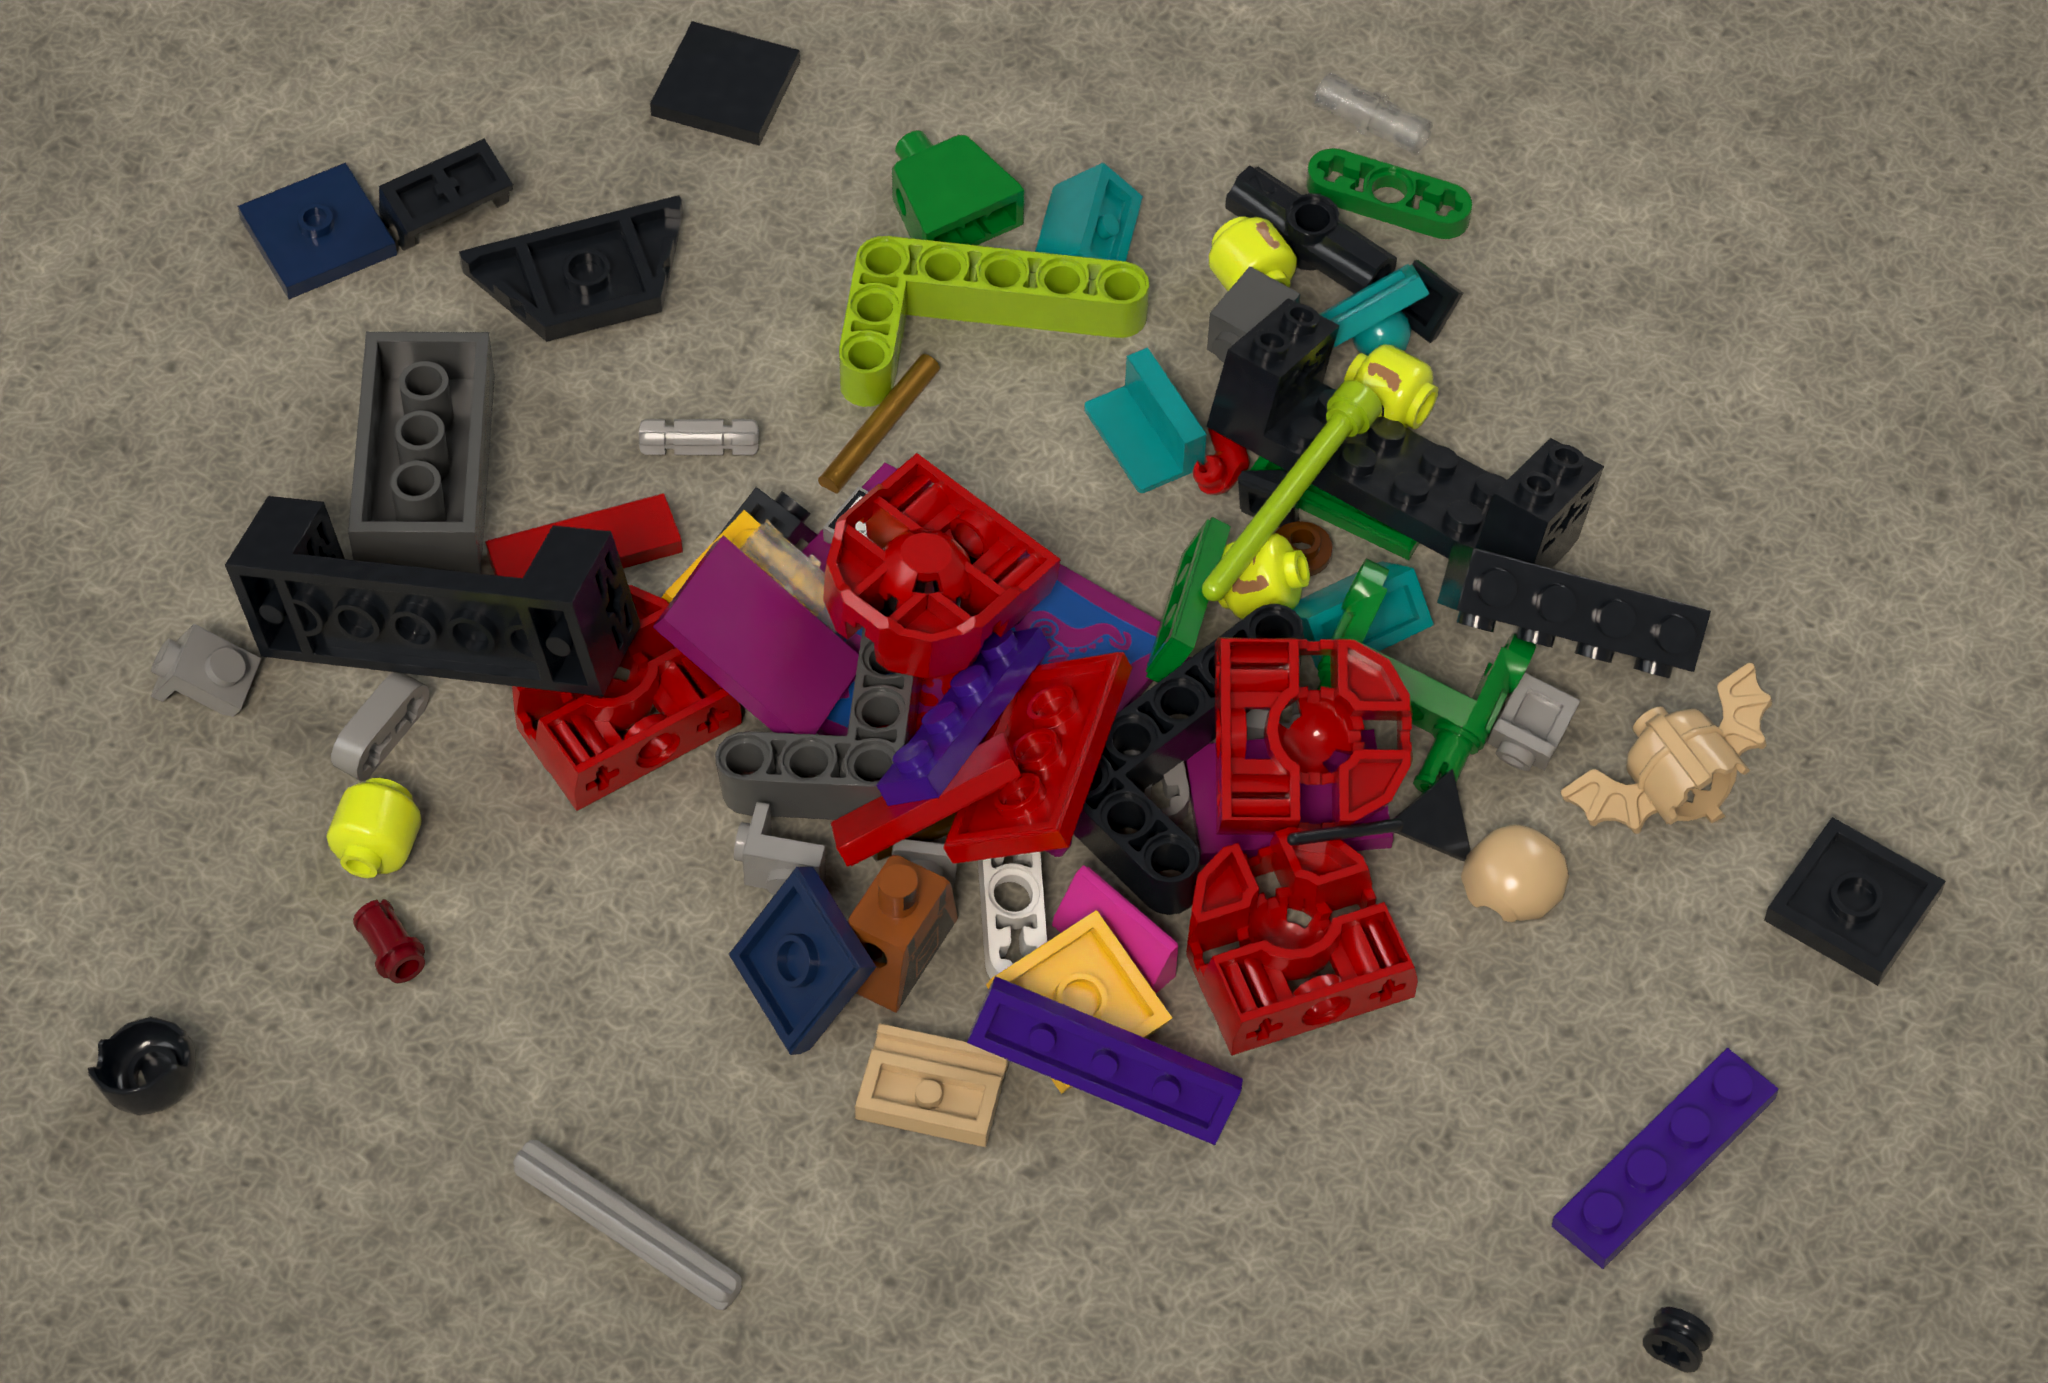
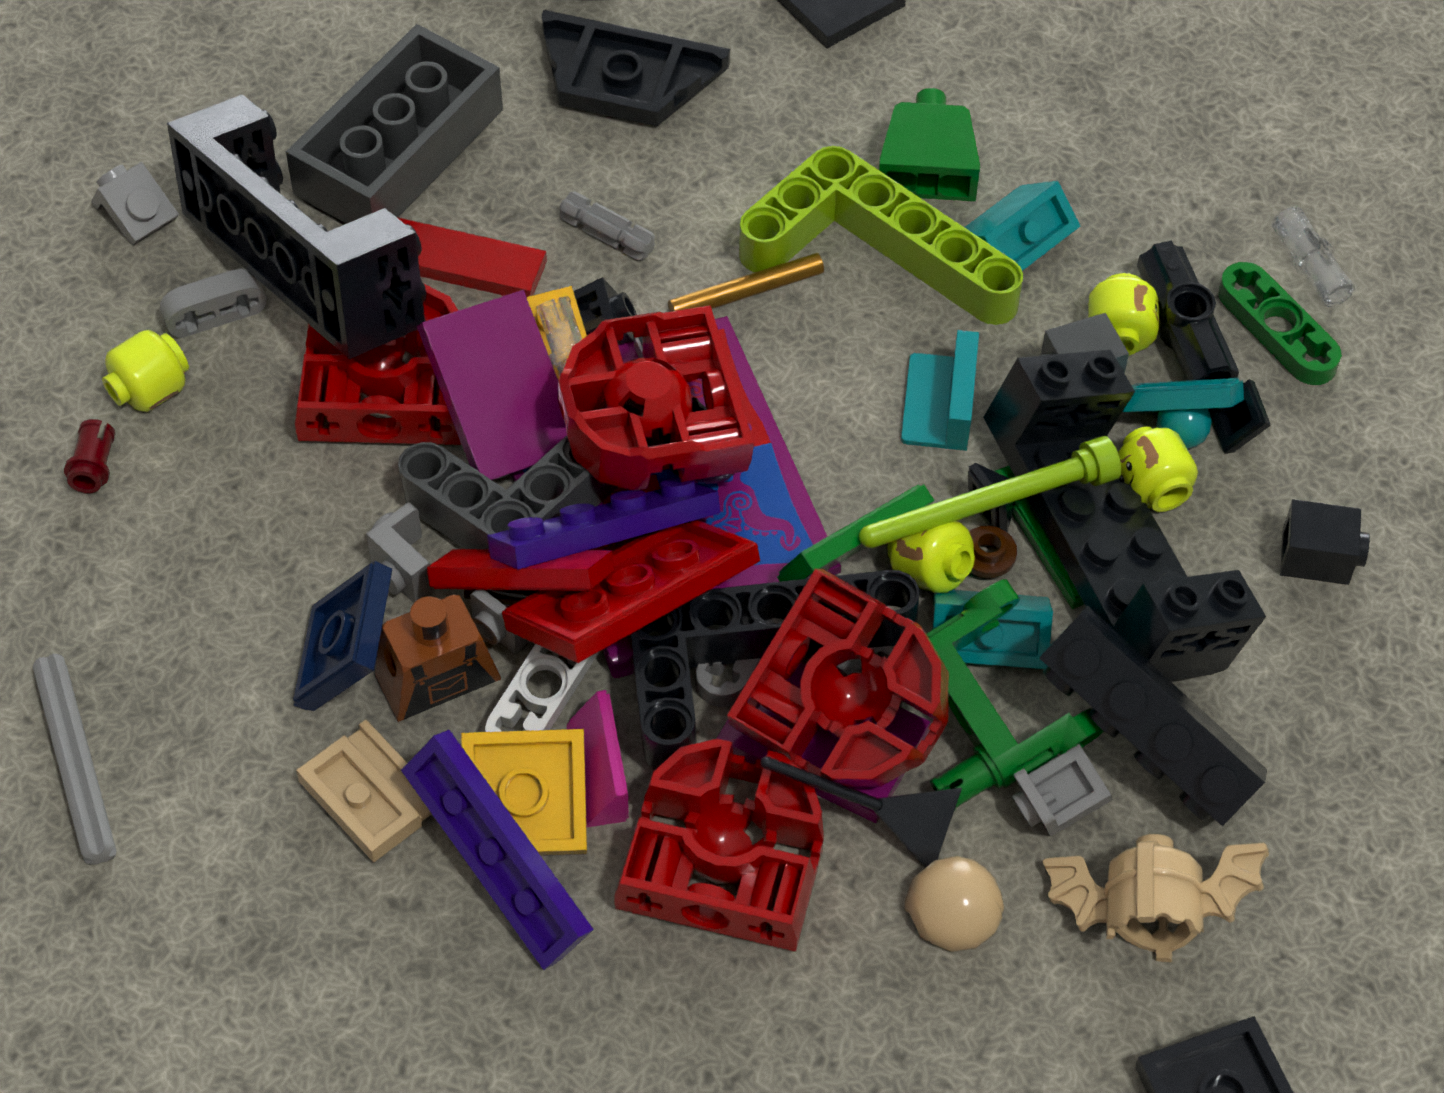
camera: 35 degrees right, 0 degrees up
(1223, 467) = (965, 454): red arm -> none
(1580, 376) = (1323, 542): none -> black brick

